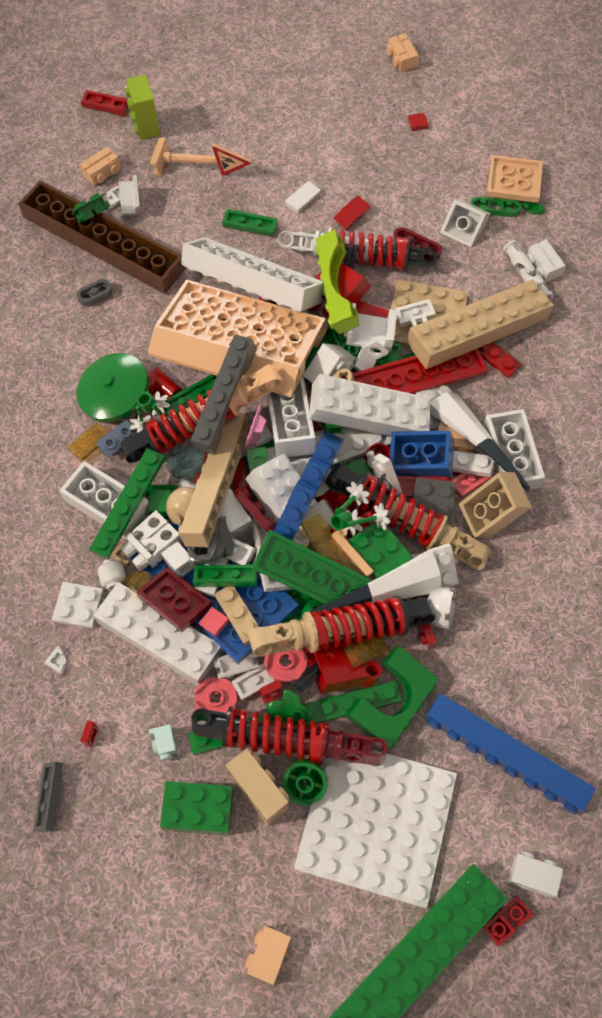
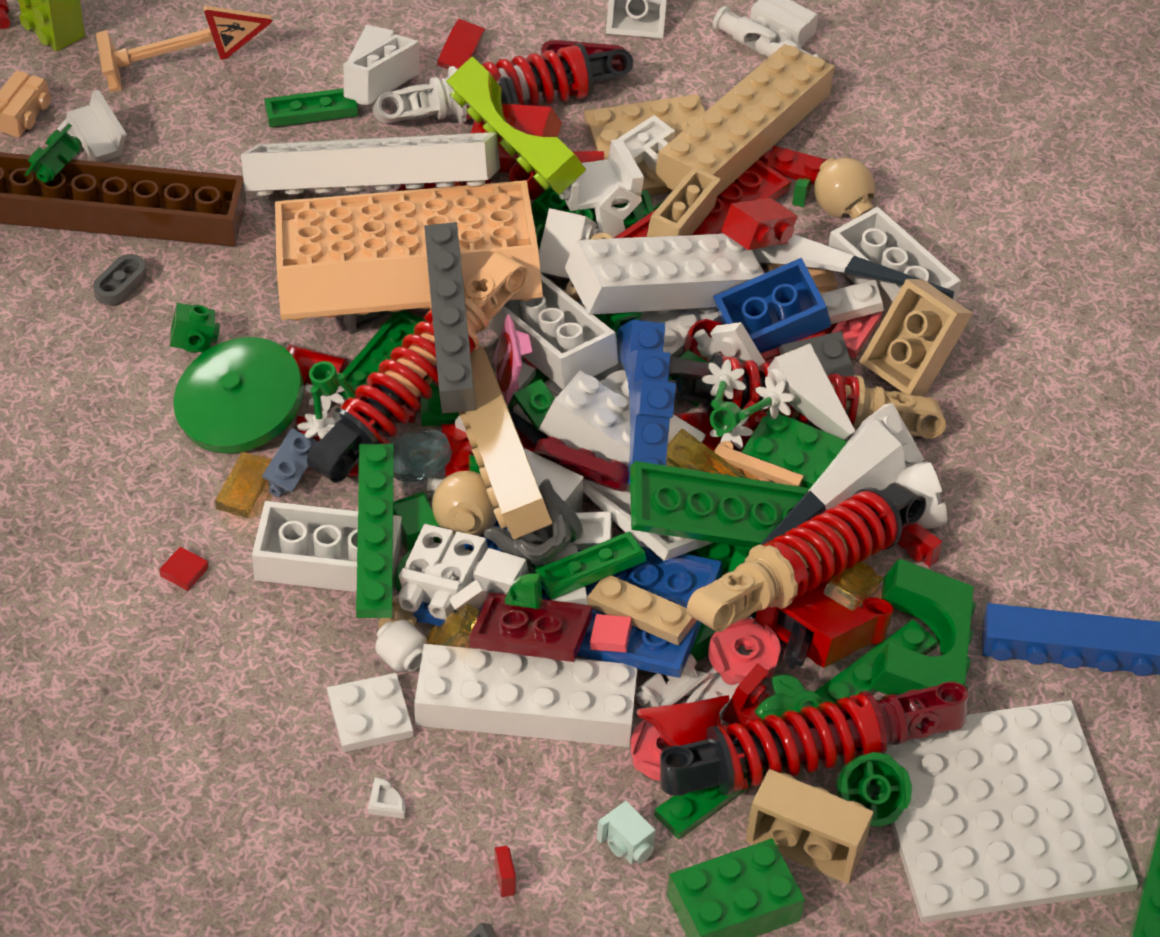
camera: 30 degrees left, 15 degrees down
(33, 478) = (184, 568): none -> red tile
(111, 337) = (193, 328): none -> green brick
(151, 566) = (472, 594): none -> white tile
(179, 578) = (525, 592): none -> green tile
(228, 693) = (686, 721): none -> red hat
(295, 213) = (381, 69): none -> white brick
(403, 514) = (811, 390): none -> white slope
(405, 370) = (685, 205): none -> tan brick
(439, 398) = (759, 223): none -> red brick
(492, 377) = (801, 191): none -> green tile
(516, 387) = (844, 187): none -> tan brick

